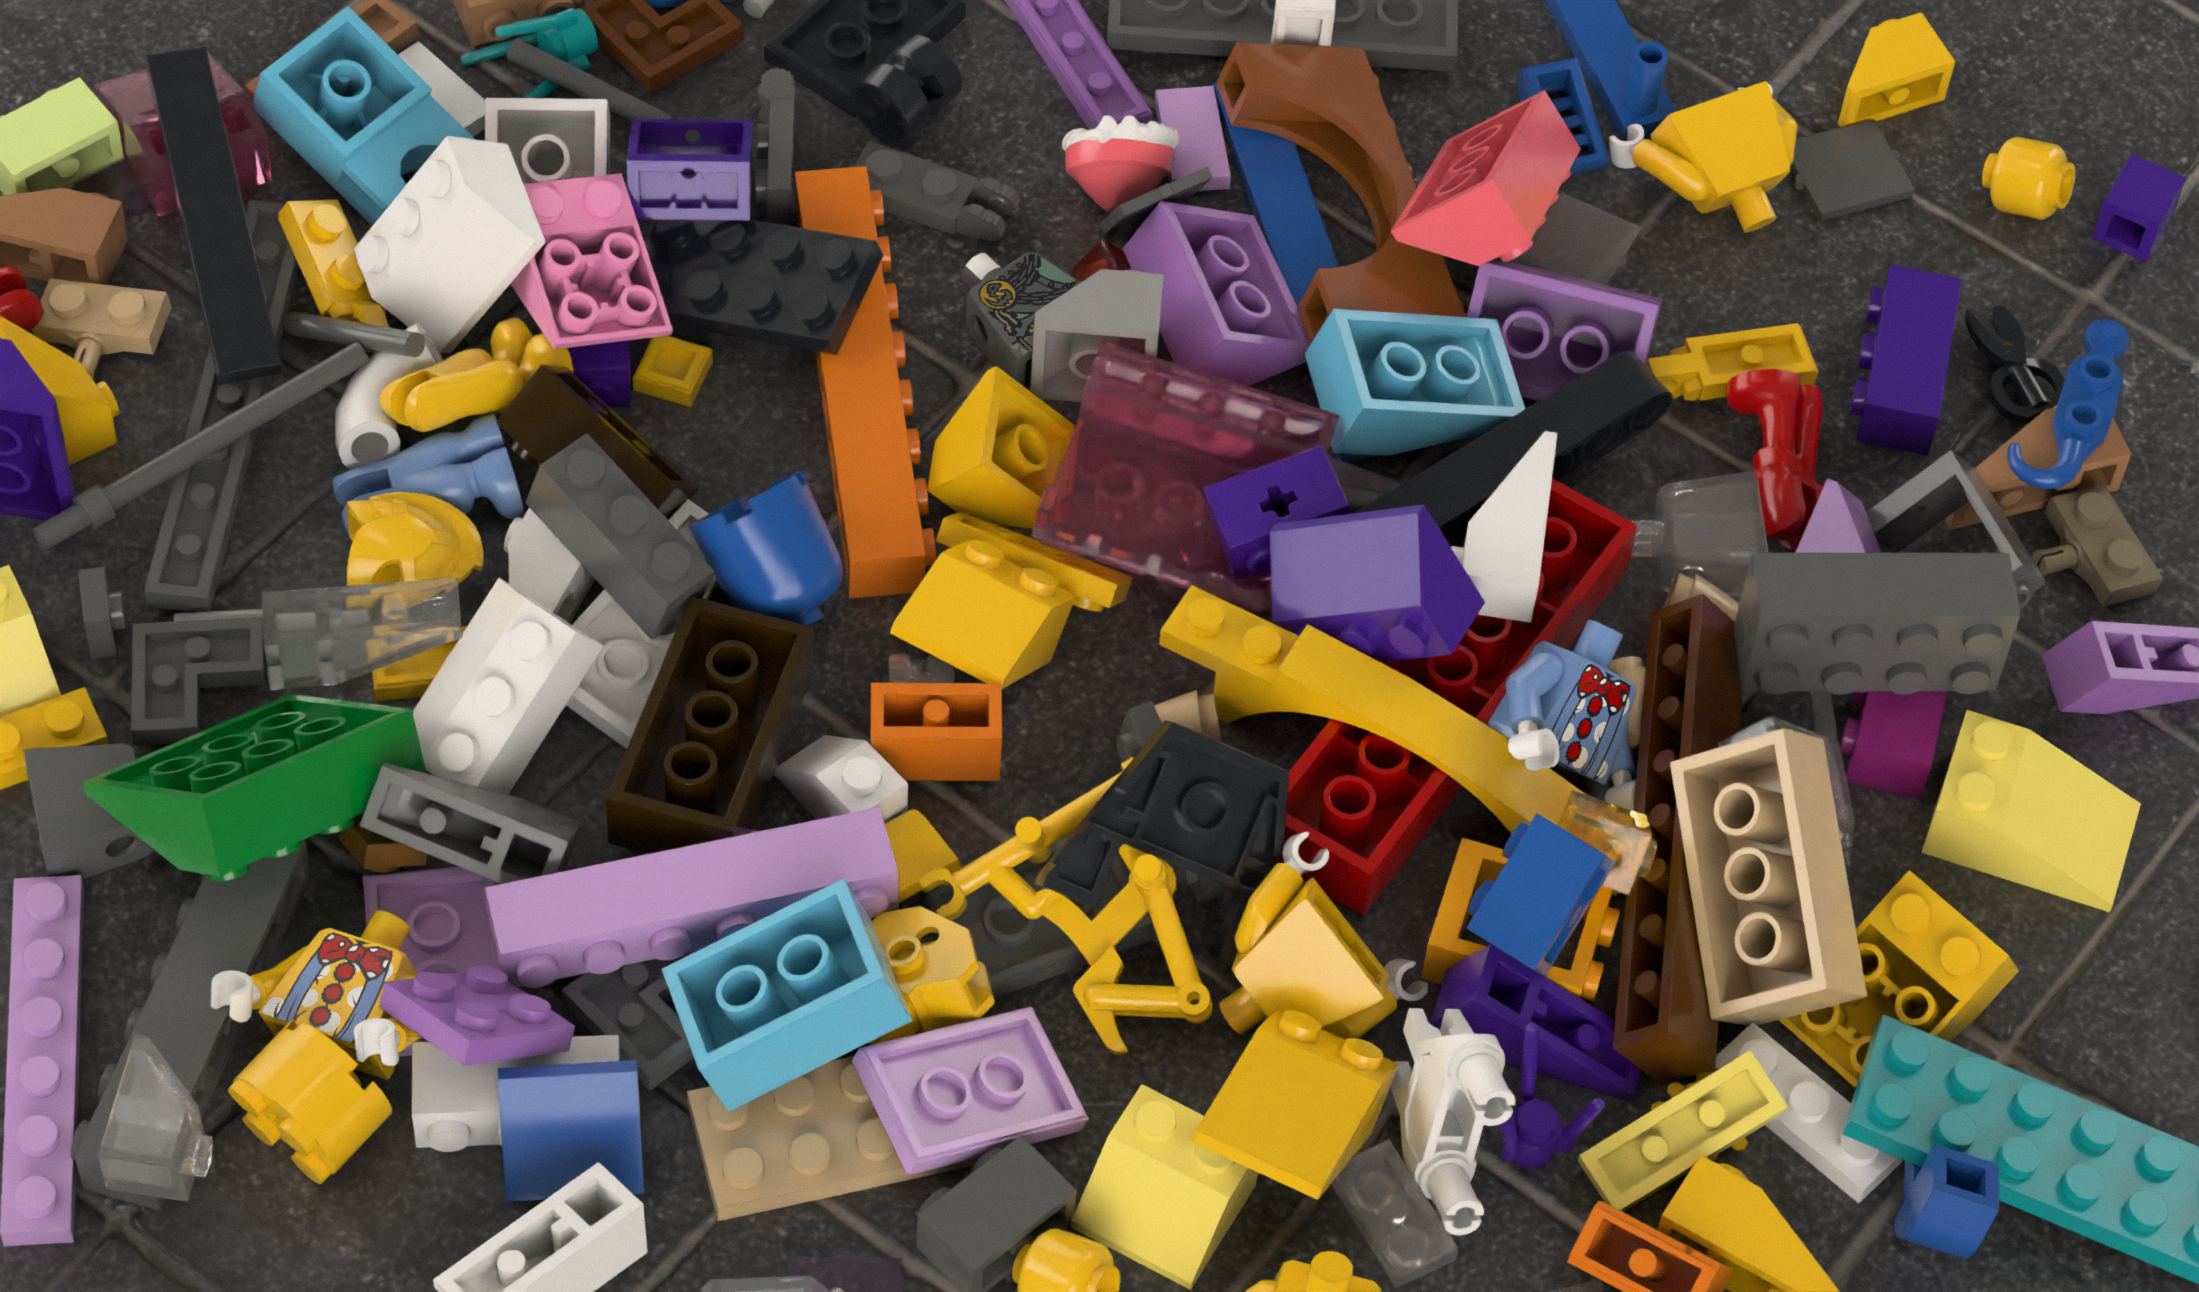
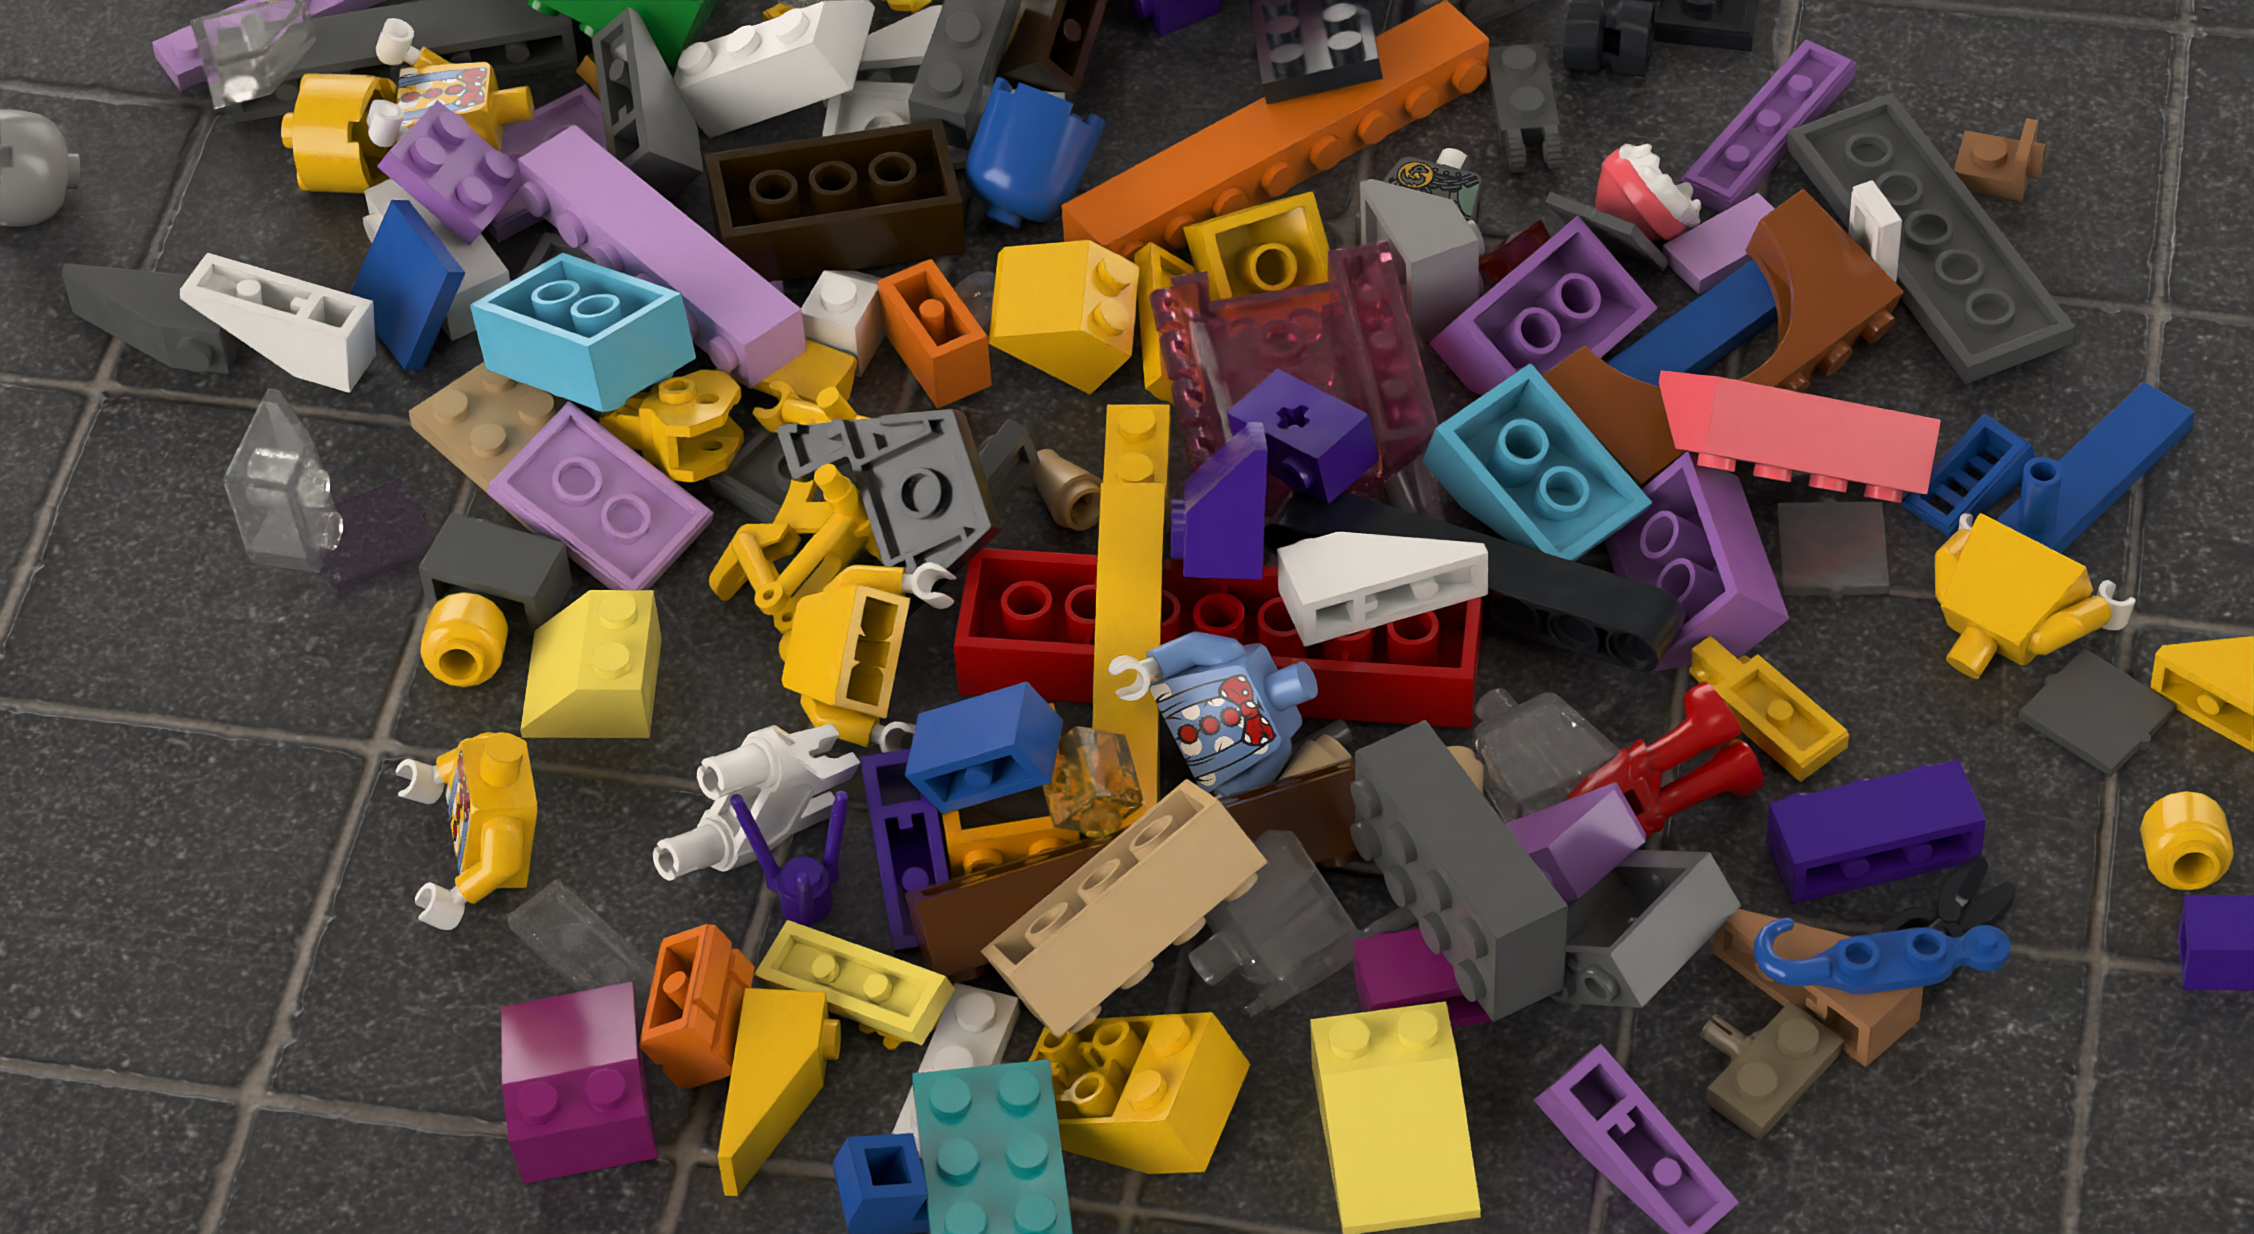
camera: 70 degrees right, 5 degrees down
(673, 370) = (1211, 40): yellow tile -> none
(1298, 1102) = (683, 687): yellow slope -> none
(1394, 1214) = (664, 810): clear plate -> none

